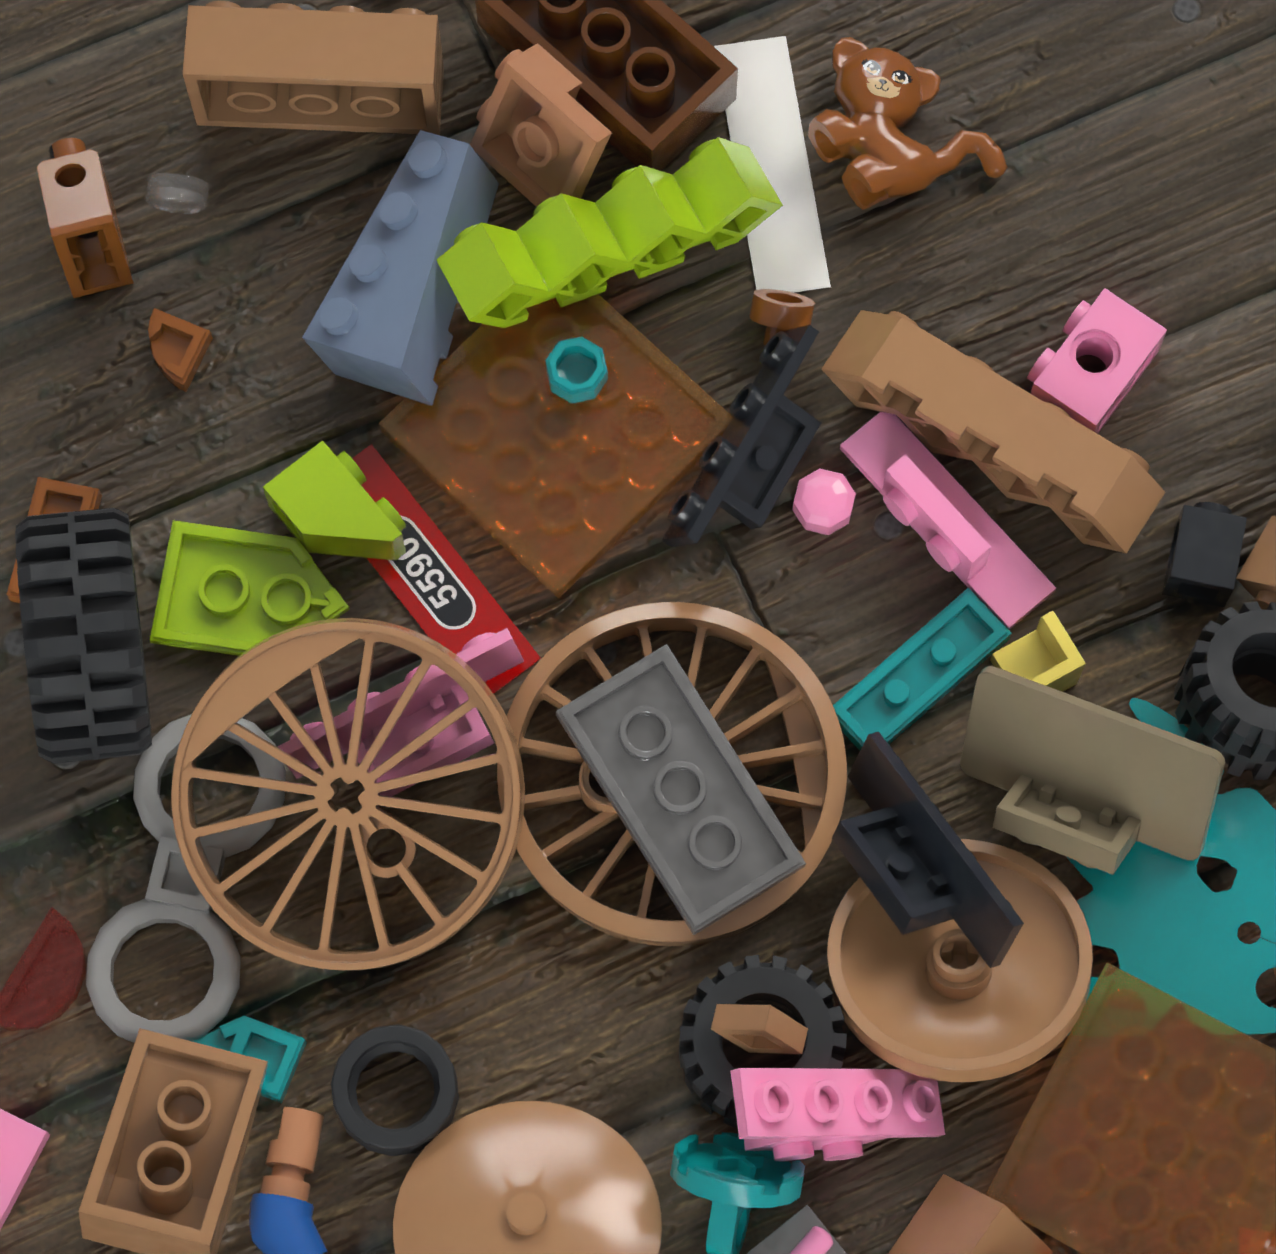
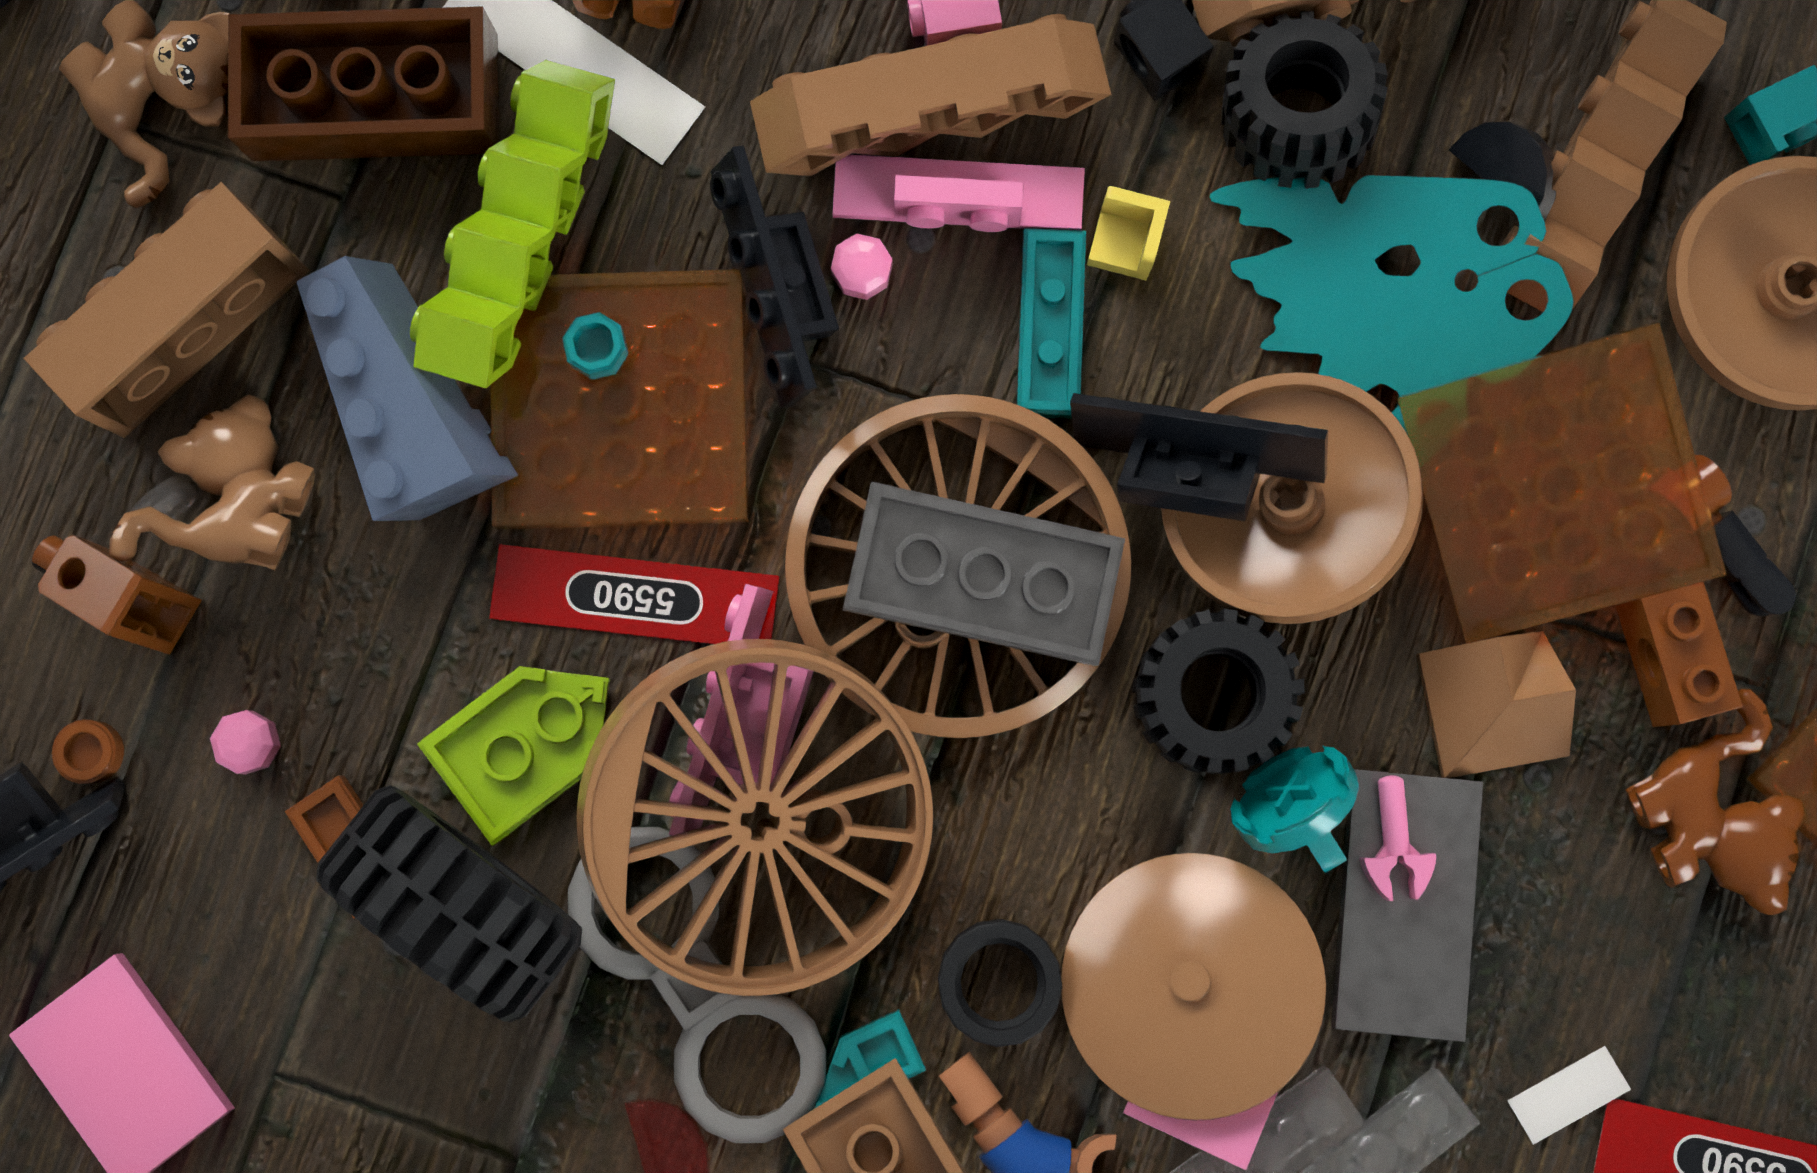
camera: 45 degrees left, 10 degrees up
(61, 405) = (245, 742): none -> bright pink tile
(177, 347) = (284, 615): dark orange tile -> none
(253, 206) = (231, 458): none -> medium nougat animal
(331, 511) = (524, 622): lime slope -> none
(537, 129) = (382, 195): nougat plate -> none
(759, 1028) = (1219, 689): medium nougat tile -> none
(780, 311) = (693, 159): dark orange tile -> none
(831, 1109) = (1321, 693): bright pink bracket -> none
(1087, 775) = (1249, 281): dark tan bracket -> none

